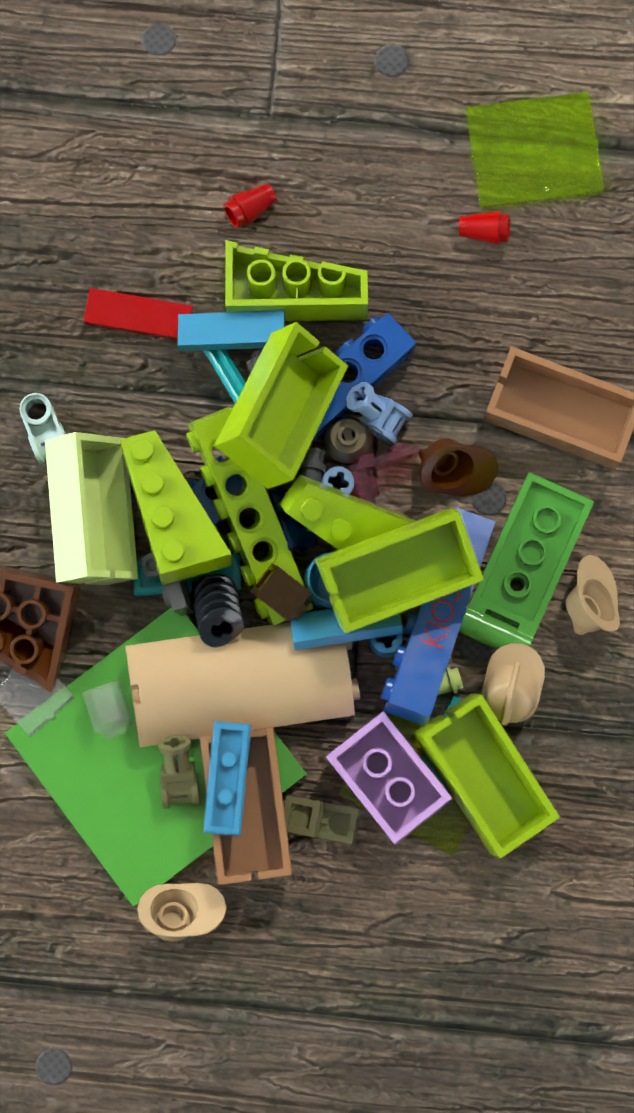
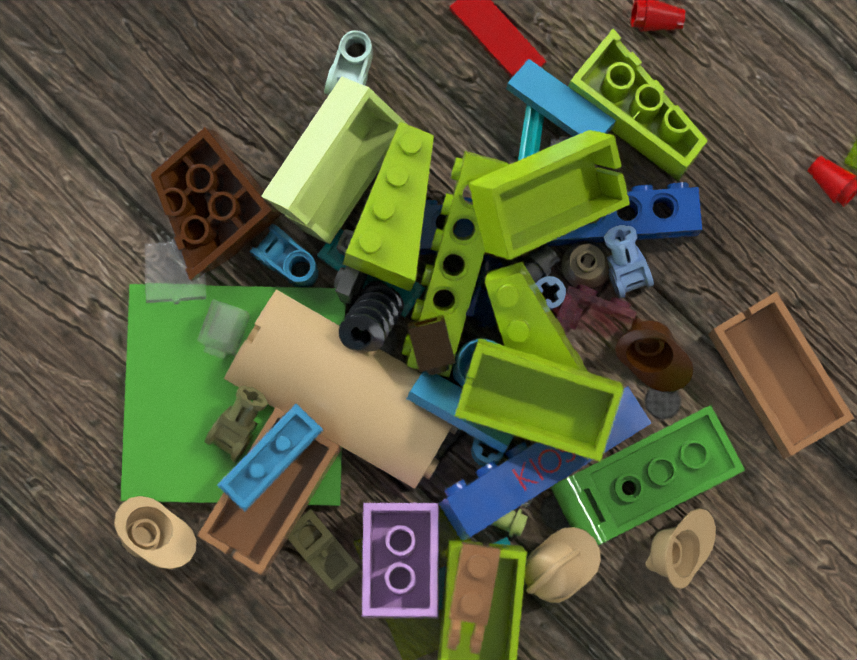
camera: 40 degrees right, 0 degrees up
(105, 614) = (280, 255): none -> dark azure piece
(466, 758) = (473, 593): none -> medium nougat hinge

